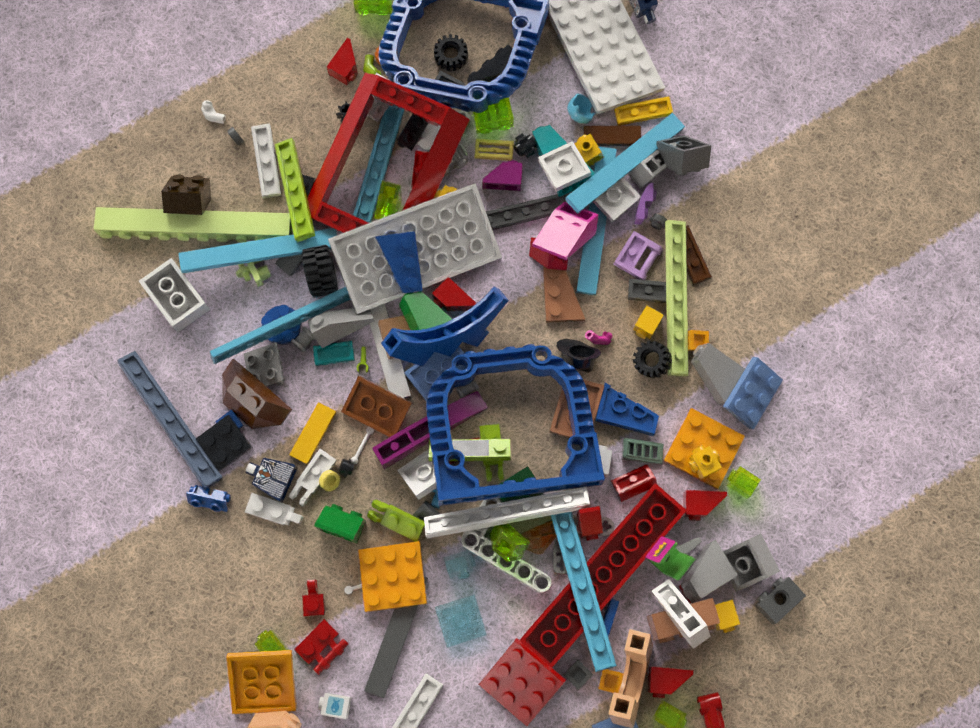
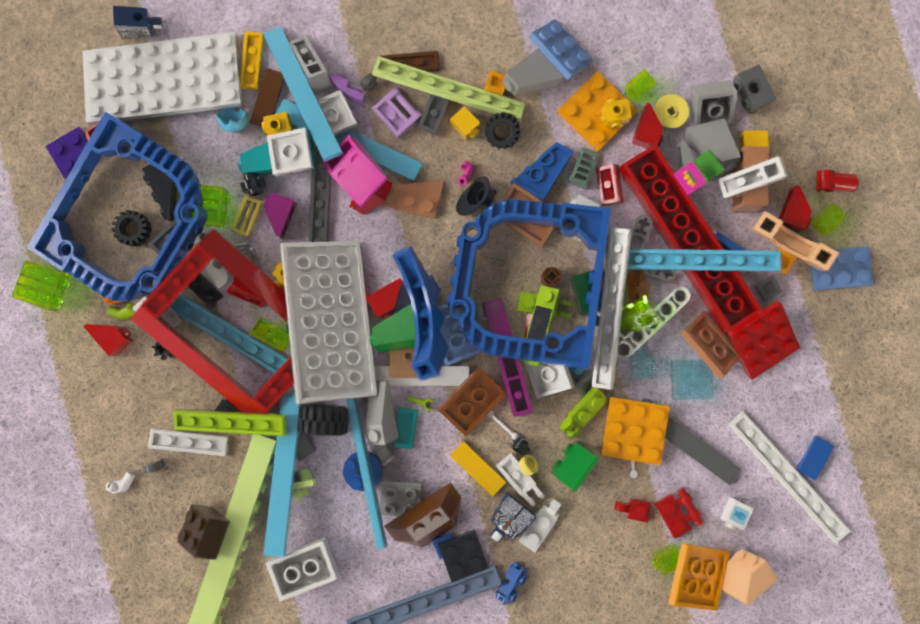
camera: 70 degrees left, 10 degrees up
(403, 259) = (337, 335): blue wing -> none
(501, 627) = (711, 344): none -> nougat plate
(519, 451) = (551, 277): none -> reddish brown wheel
(590, 523) = (642, 235): red slope -> none
(684, 154) = (310, 34): dark grey slope -> none
(734, 514) = (677, 105): none -> light yellow piece

